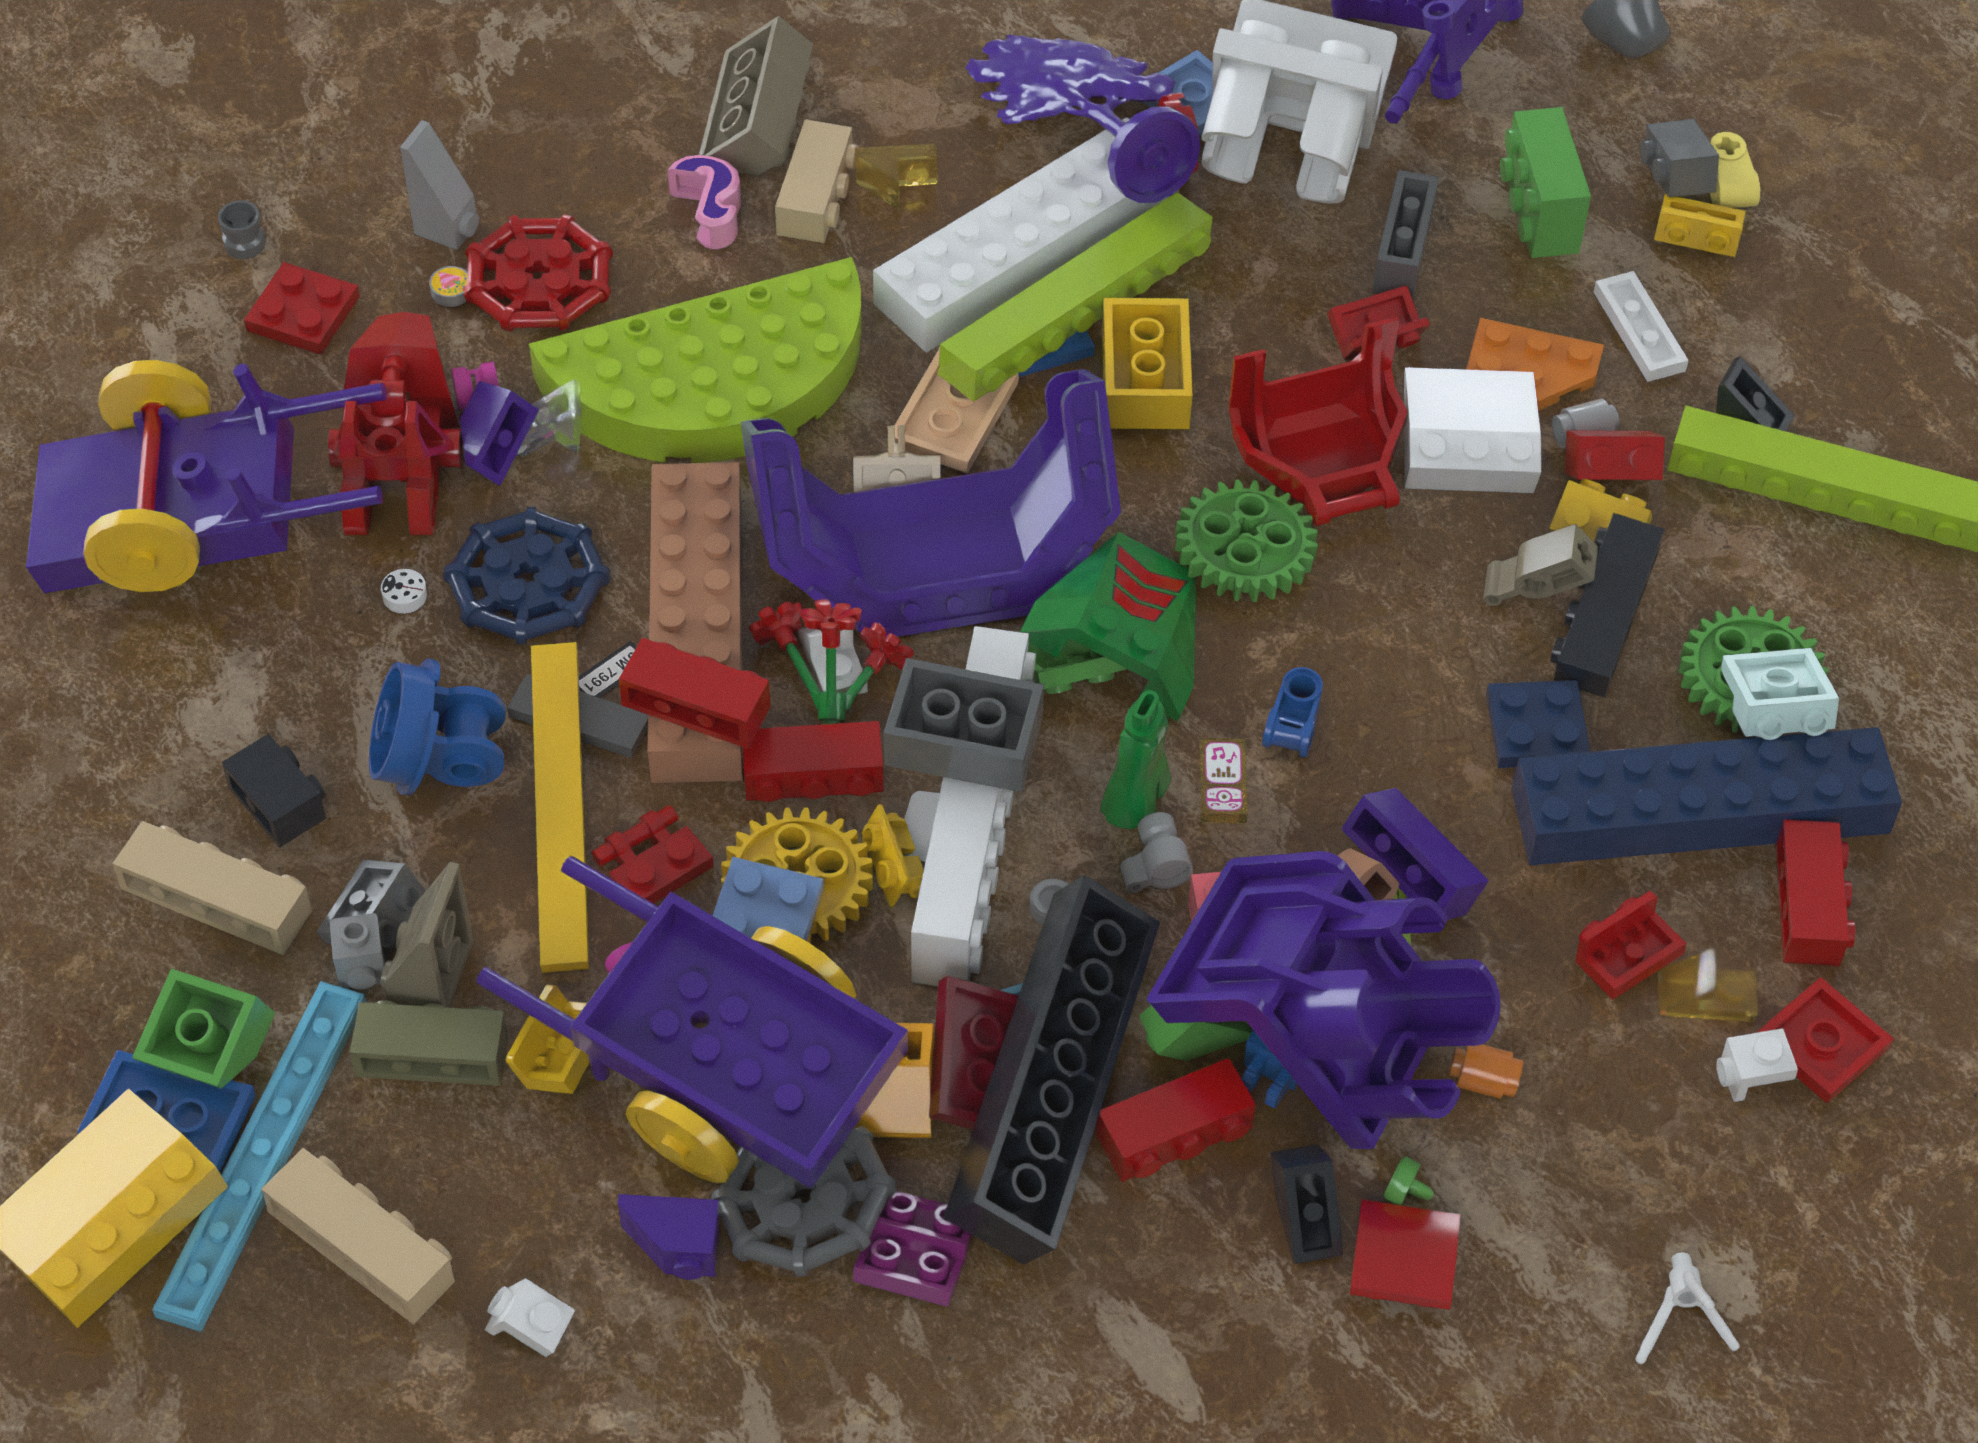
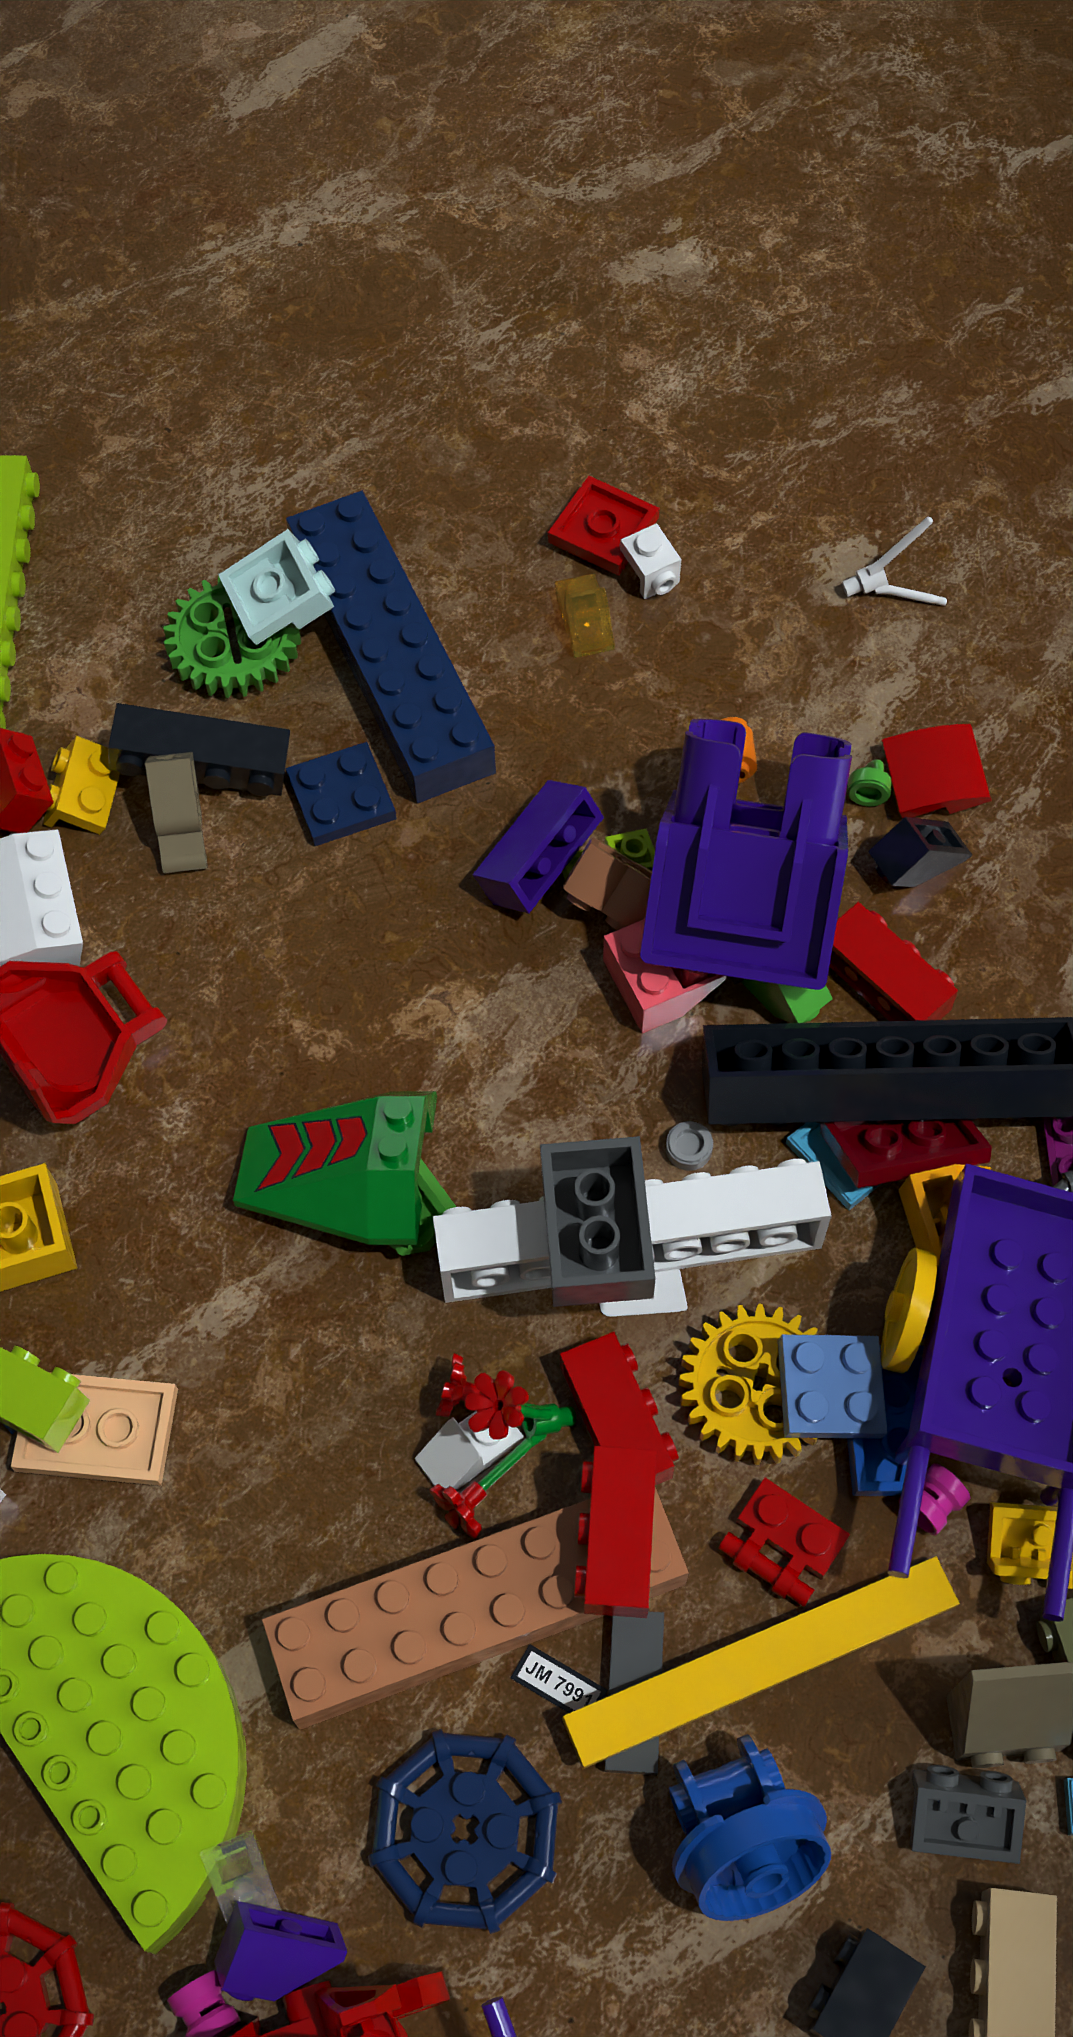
camera: 105 degrees left, 10 degrees up
(357, 951) = (1035, 1797): light grey bracket -> none
(403, 591) = (531, 1973): white tile -> none
(887, 842) = (714, 1290): yellow hinge -> none
(894, 466) = (210, 1455): tan plate -> none
(948, 545) = (285, 1363): dark purple windscreen -> none
(1141, 765) = (532, 1091): green piece -> none
(1163, 860) = (610, 1057): light grey piece -> none
(1223, 780) = (496, 1035): tile -> none
(1246, 540) = (173, 1114): bright green gear -> none
(1293, 718) = (409, 987): blue piece -> none
(1628, 946) = (568, 671): red bracket -> none
(1813, 893) = (463, 552): red brick -> none

